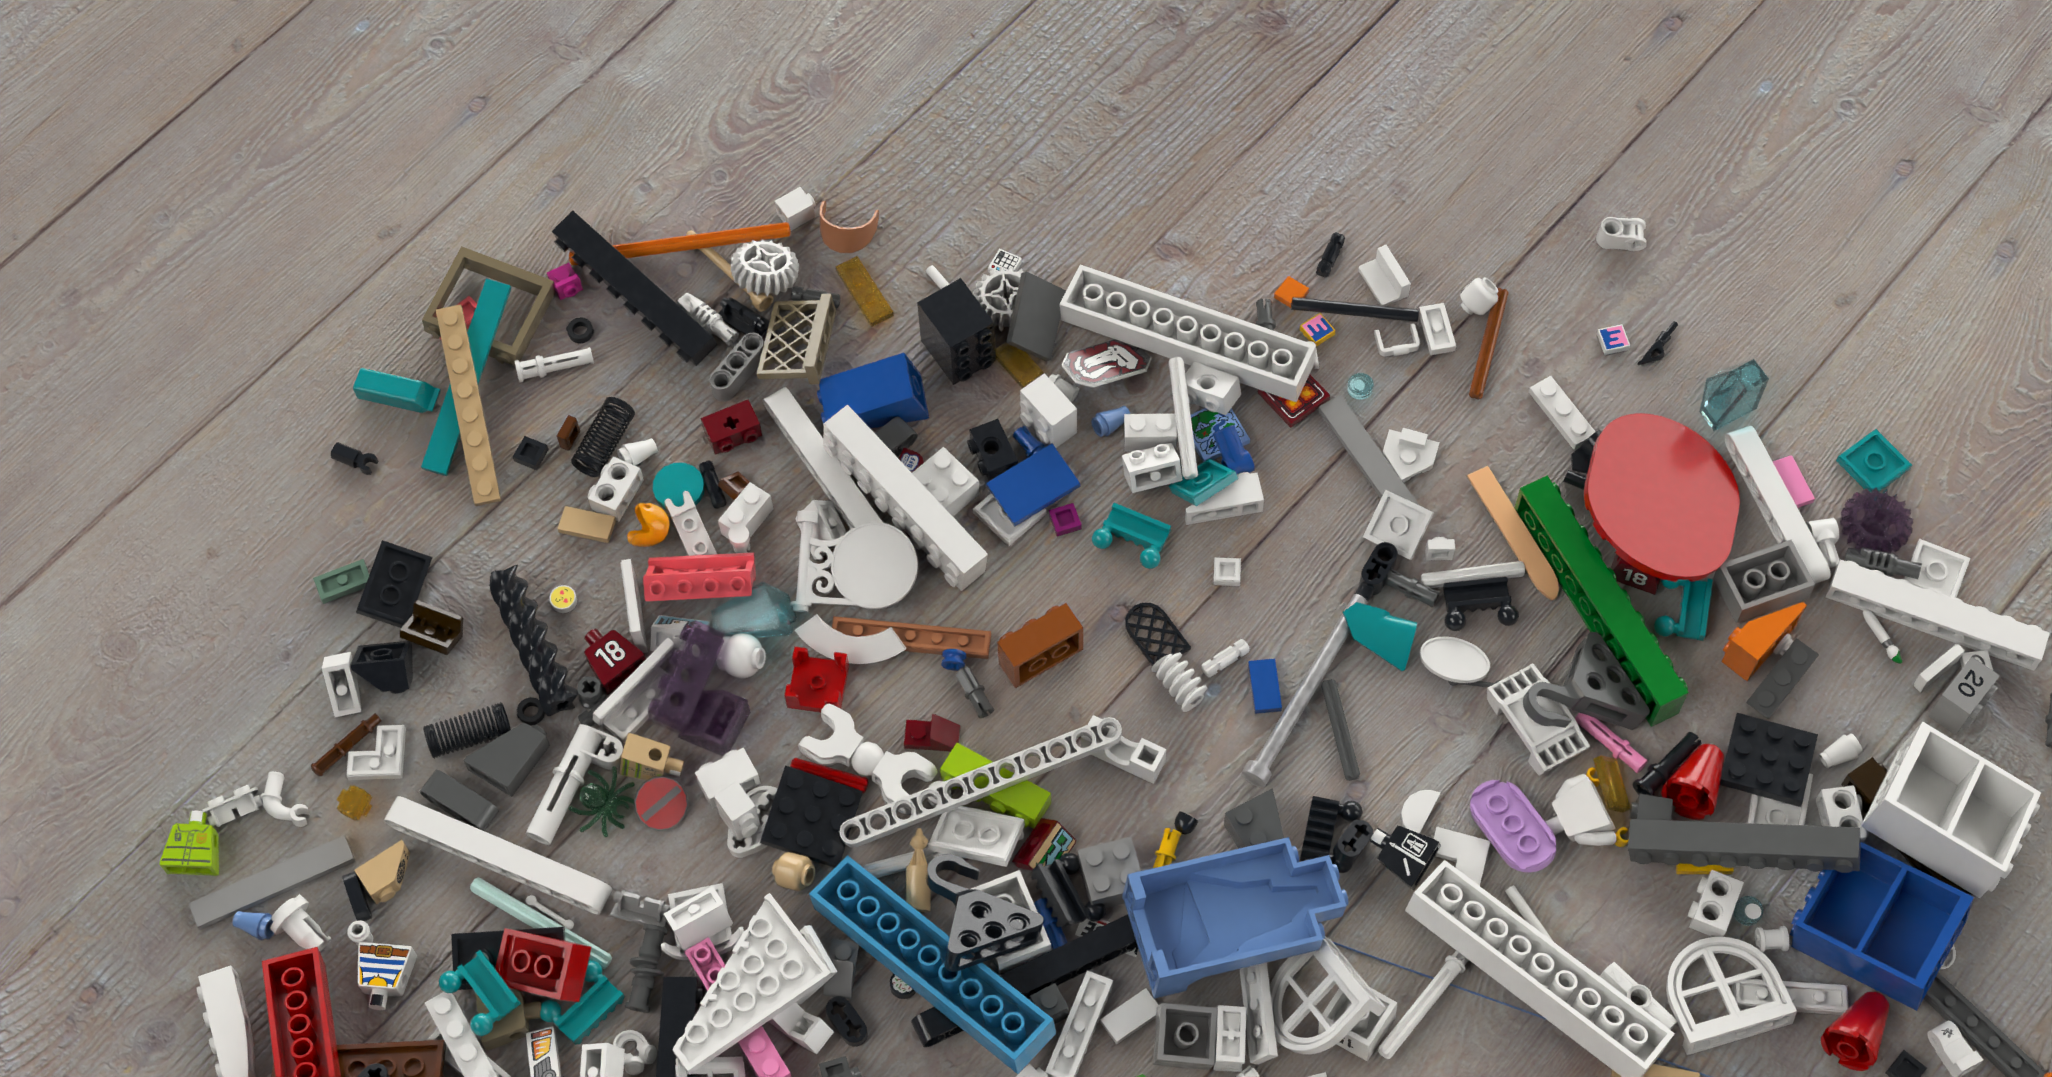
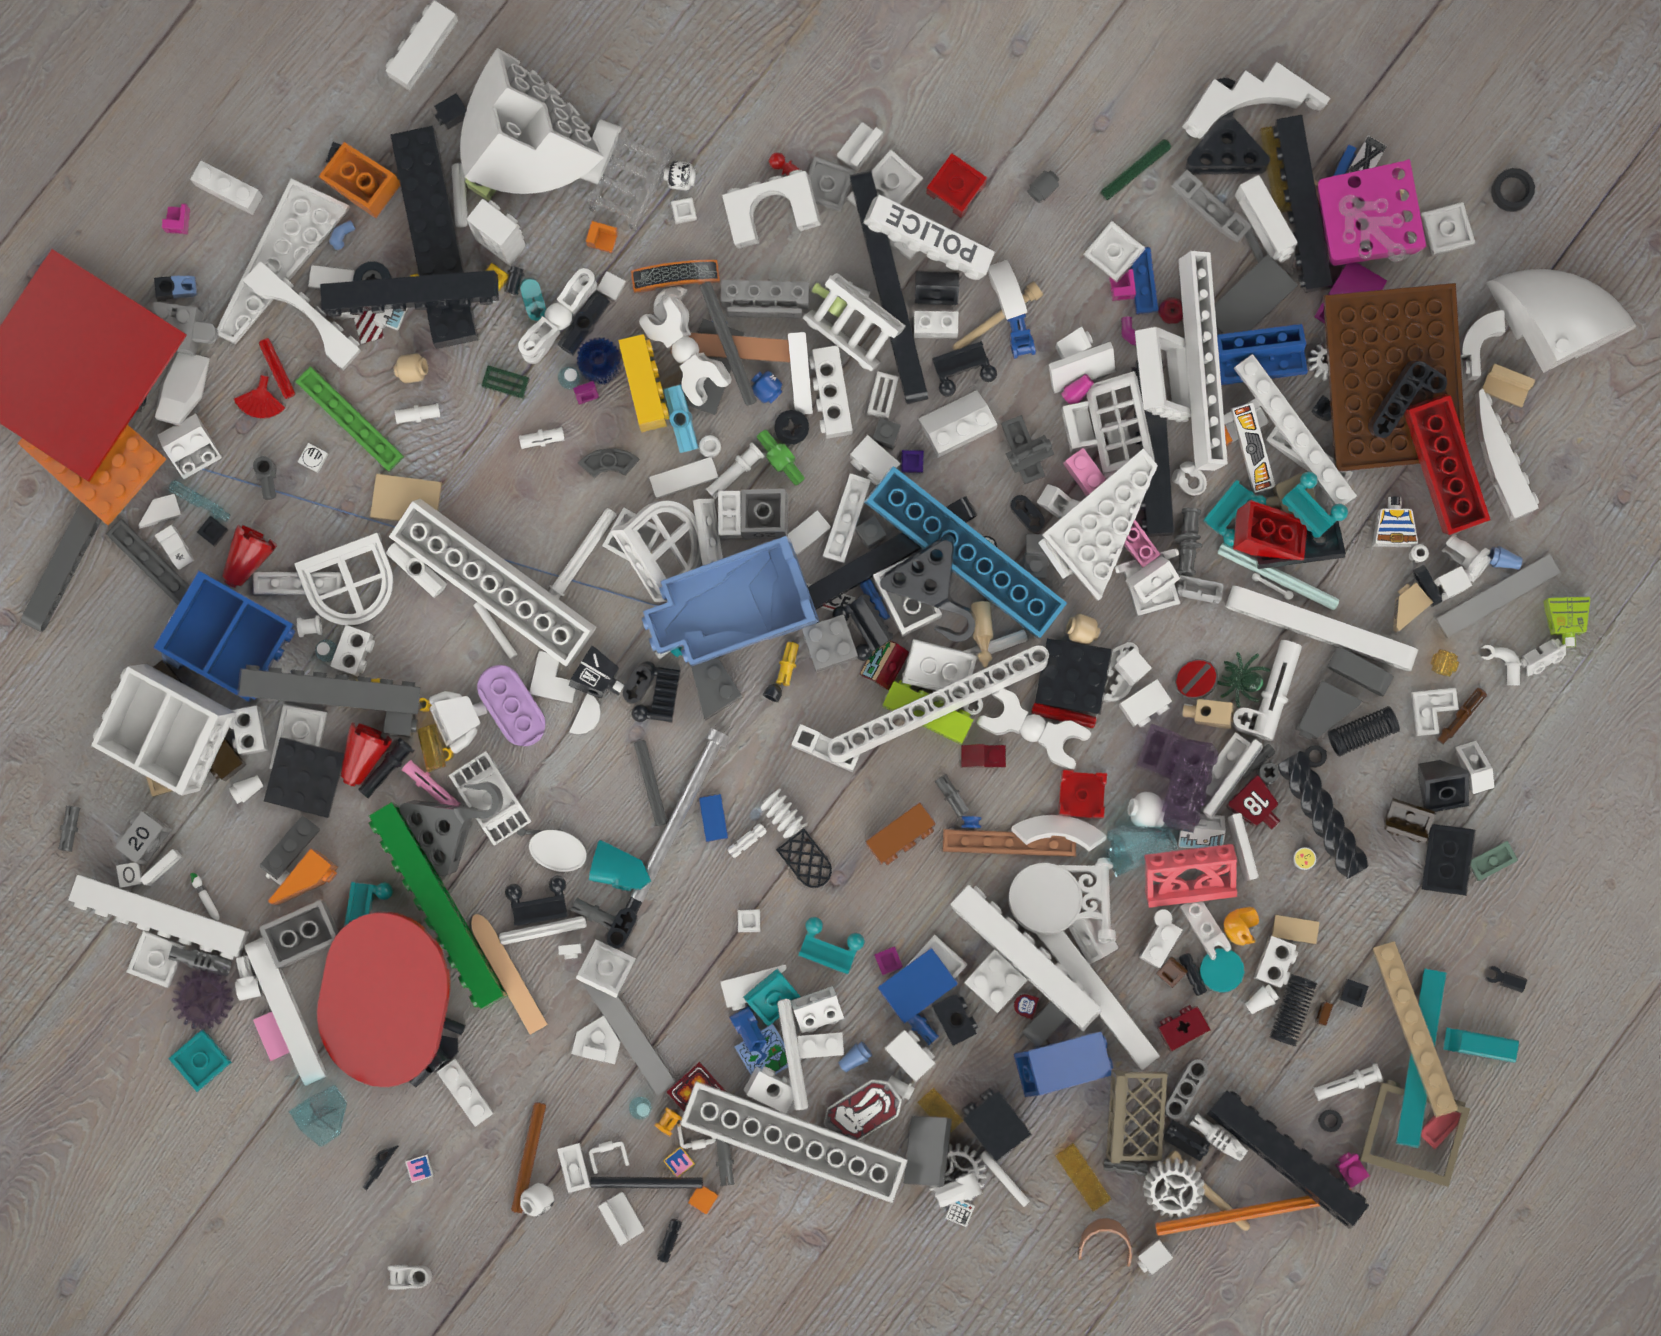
camera: 175 degrees right, 20 degrees up
(325, 890) = (1453, 583): none -> white brick
(999, 273) = (962, 1188): none -> white piece
(1328, 368) = (668, 1121): none -> light orange bush

